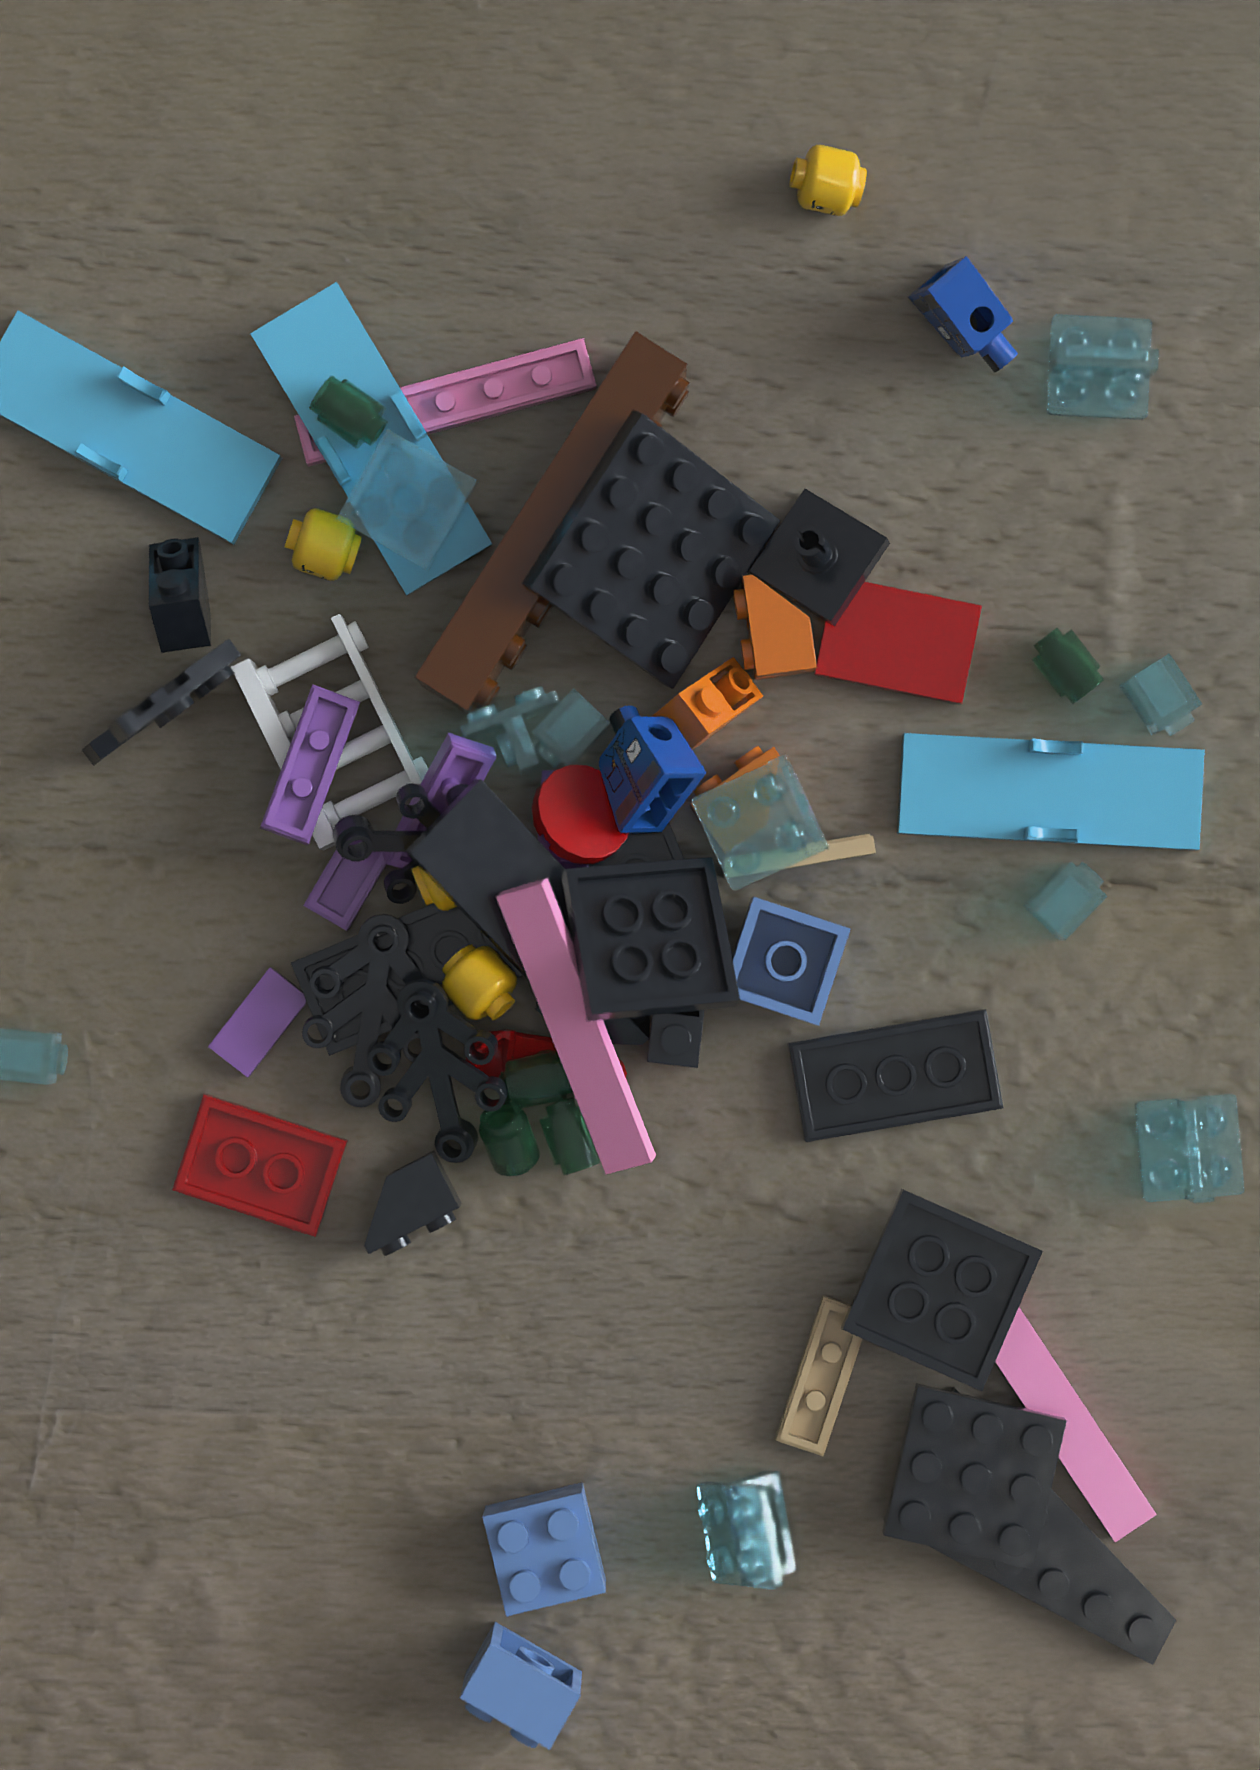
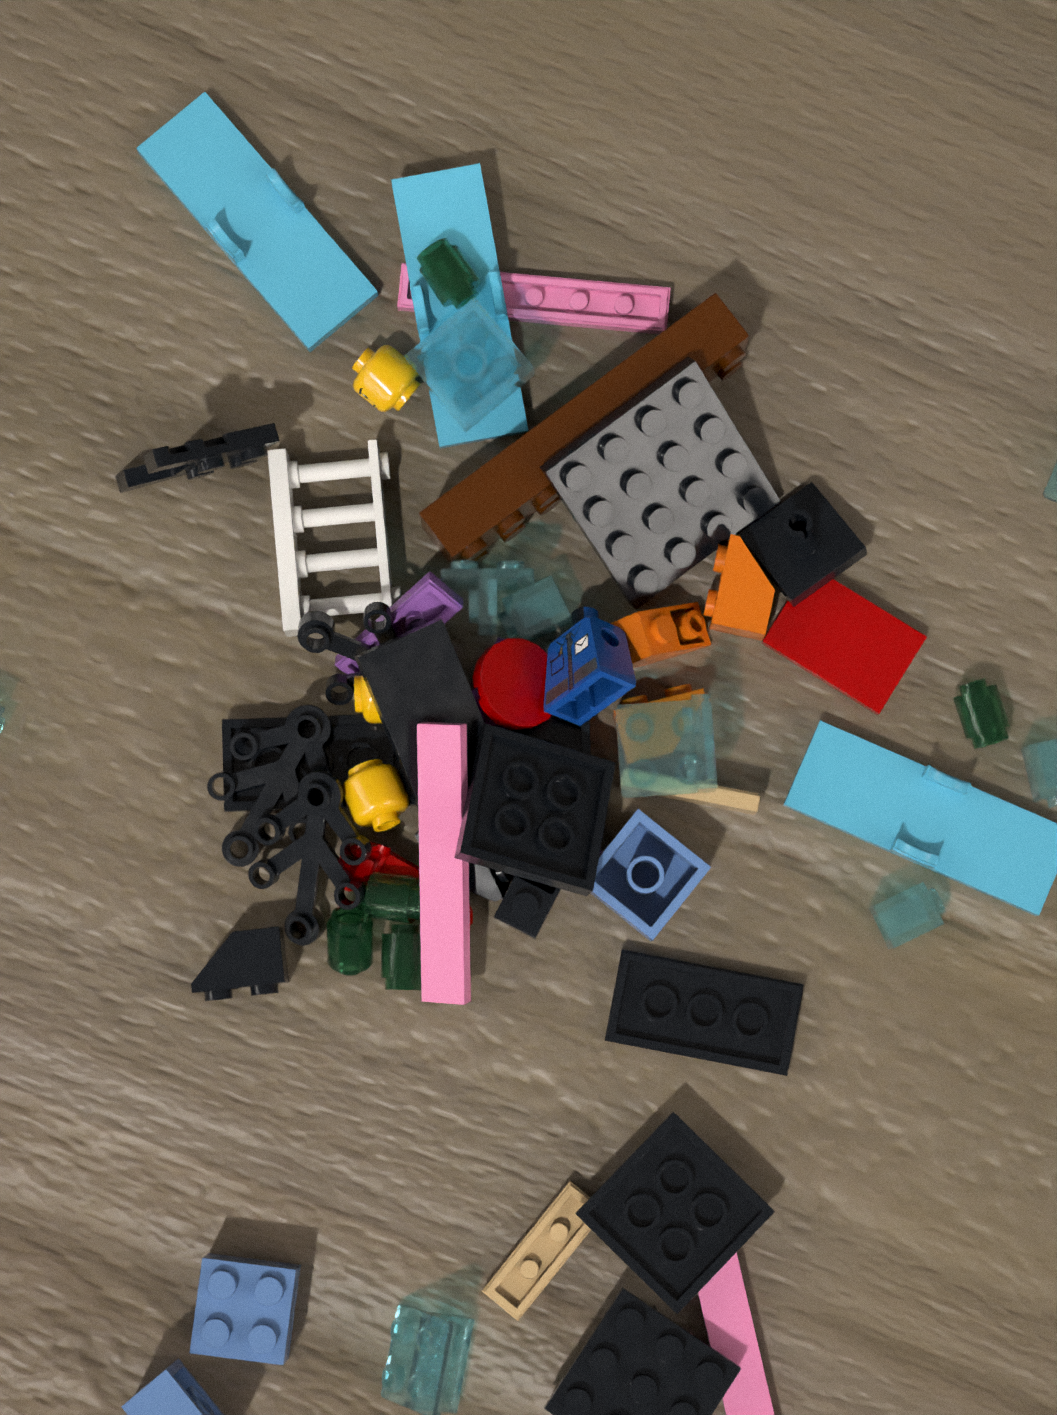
camera: 30 degrees right, 5 degrees down
(179, 595) = (247, 375): black slope -> none
(259, 1022) = (175, 761): medium lavender tile -> none
(260, 1165) = (129, 884): red tile -> none
(310, 765) = (302, 556): medium lavender tile -> none
(345, 887) = (294, 673): medium lavender tile -> none
(828, 180) = (927, 231): yellow head -> none
(952, 298) = (1001, 366): blue torso -> none
(1189, 1148) = (937, 1172): clear light blue bracket -> none

